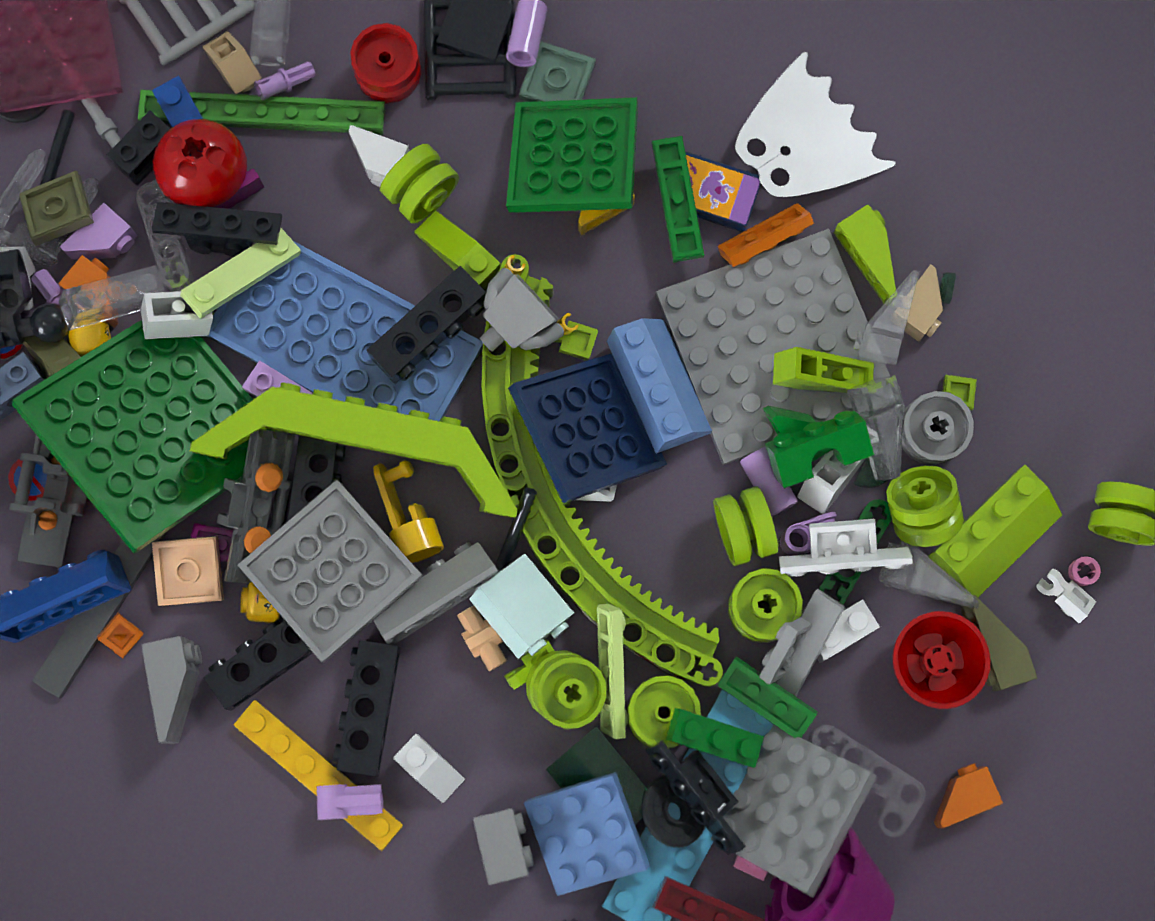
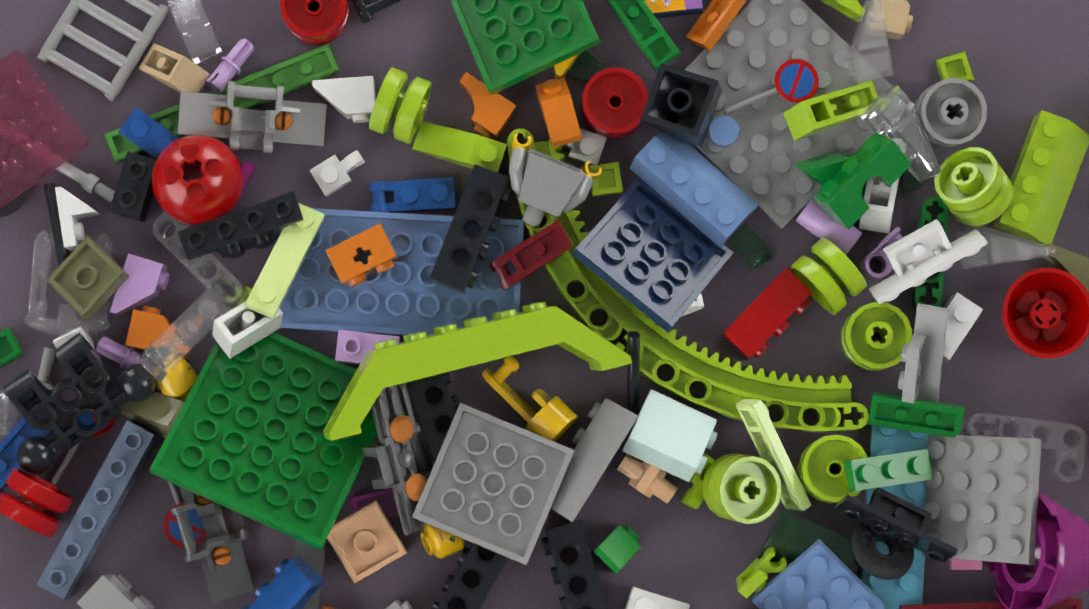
camera: 30 degrees left, 5 degrees up
(72, 143) = (70, 210): none -> white slope
(274, 144) = (252, 129): none -> light grey piece
(301, 295) = (370, 241): none -> orange brick
(330, 220) = (332, 173): none -> white plate
(394, 273) = (414, 195): none -> blue plate
(419, 690) = (618, 548): none -> green slope
(473, 374) = (532, 254): none -> dark red plate
(501, 230) = (490, 111): none -> orange arch
(539, 780) = (756, 576): none -> lime plate
(563, 256) = (558, 112): none -> orange slope
(572, 300) = (588, 148): none -> white plate
(612, 233) = (585, 67): none -> clear green tile
(637, 269) = (614, 85): none -> red wheel
(671, 537) = (768, 315): none -> red brick
(682, 301) = (682, 104): none -> black slope
(683, 460) = (746, 242): none -> clear green tile
(687, 480) = (757, 259): none -> clear green tile
(710, 346) = (723, 131): none -> medium blue tile
(797, 329) = (793, 81): none -> piece

